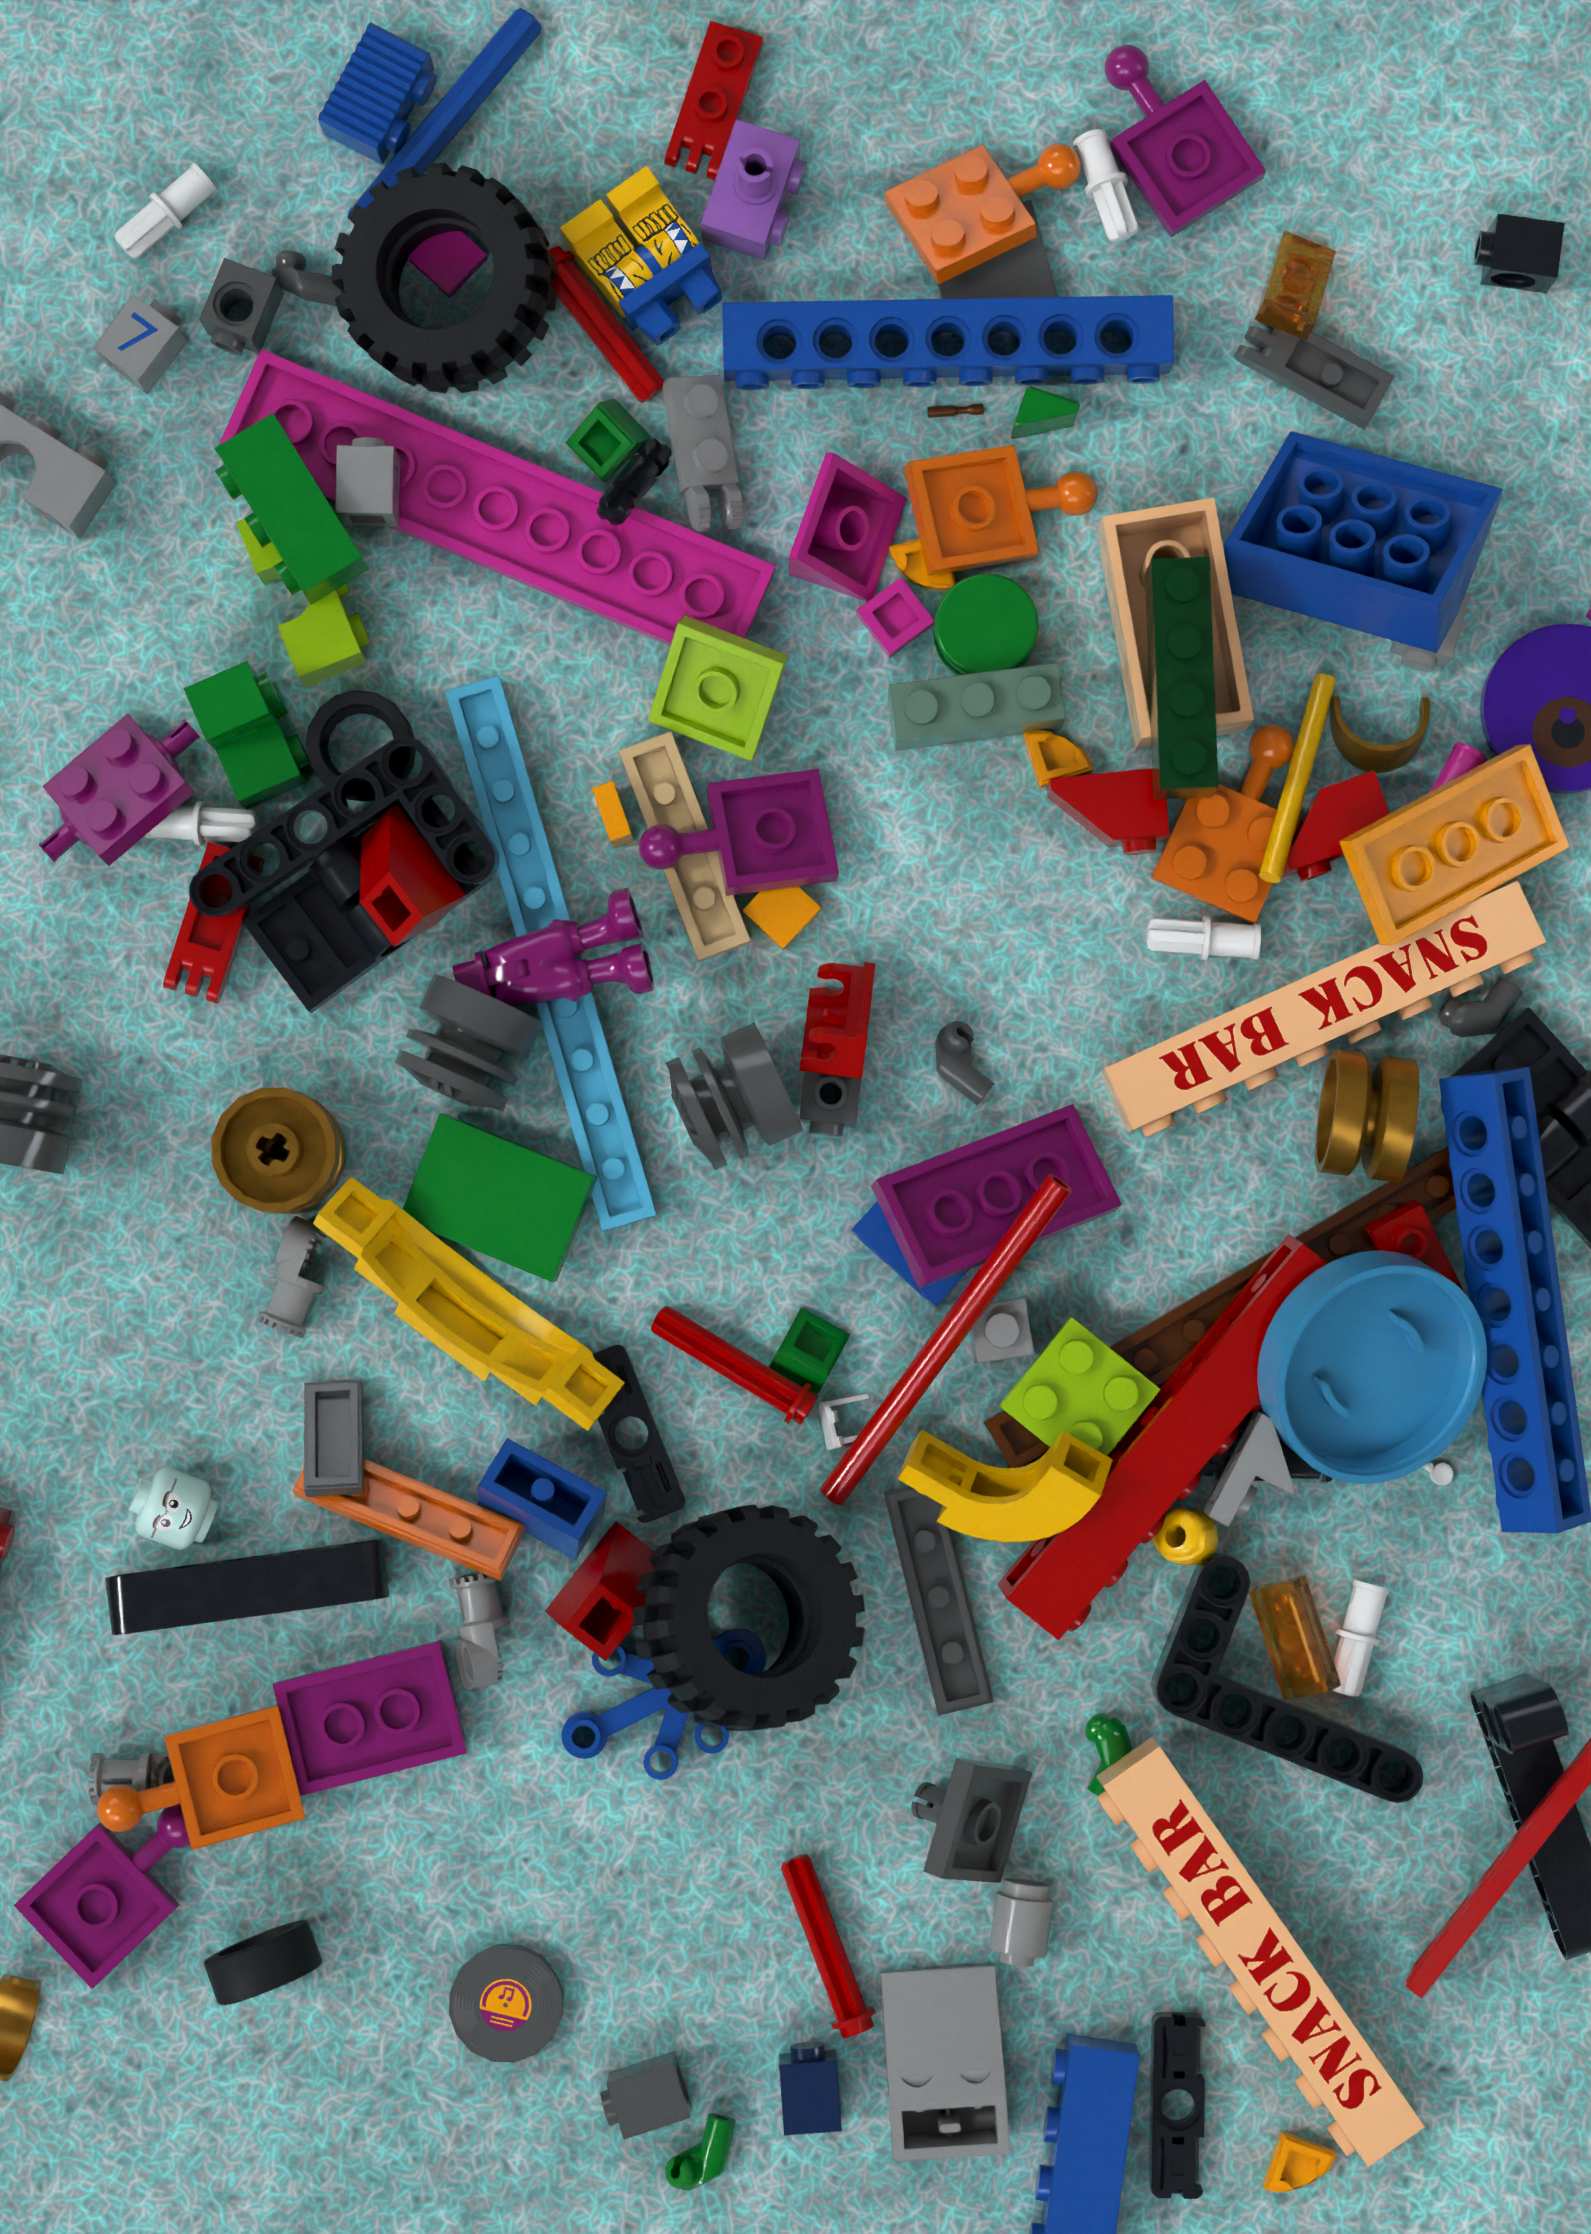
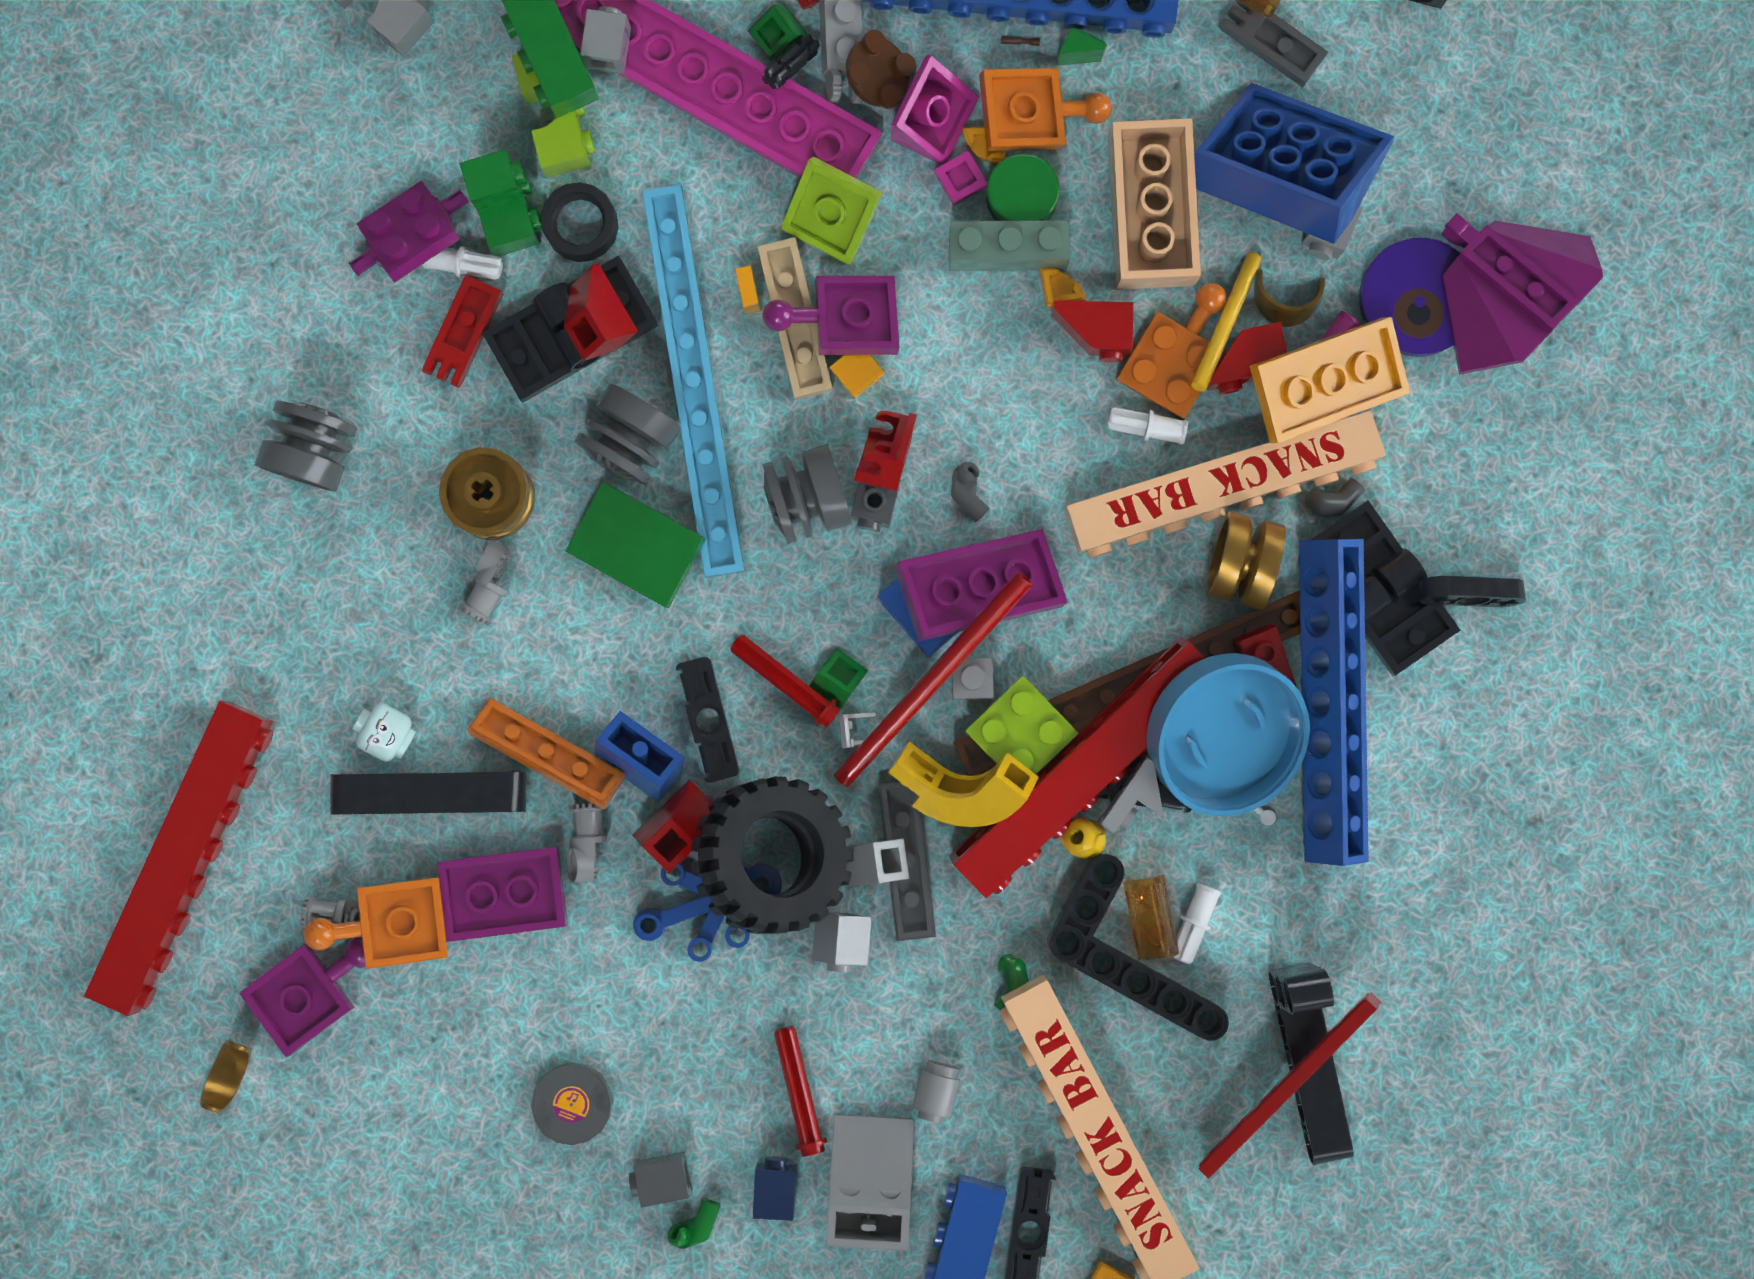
camera: 10 degrees right, 0 degrees up
(263, 1962) = (405, 1053): black tyre -> none
(333, 1438) = (500, 697): dark grey tile -> none
(344, 822) = (560, 271): black beam -> none
(465, 1308) = (602, 618): yellow piece -> none
(546, 965) = (688, 389): magenta piece -> none
(760, 479) = (879, 70): none -> reddish brown piece
(862, 1725) = (842, 941): none -> brick
(899, 1608) = (878, 863): none -> light grey brick
(973, 1819) = (911, 1016): dark grey tile -> none
(1181, 678) = (1153, 239): dark green brick -> none

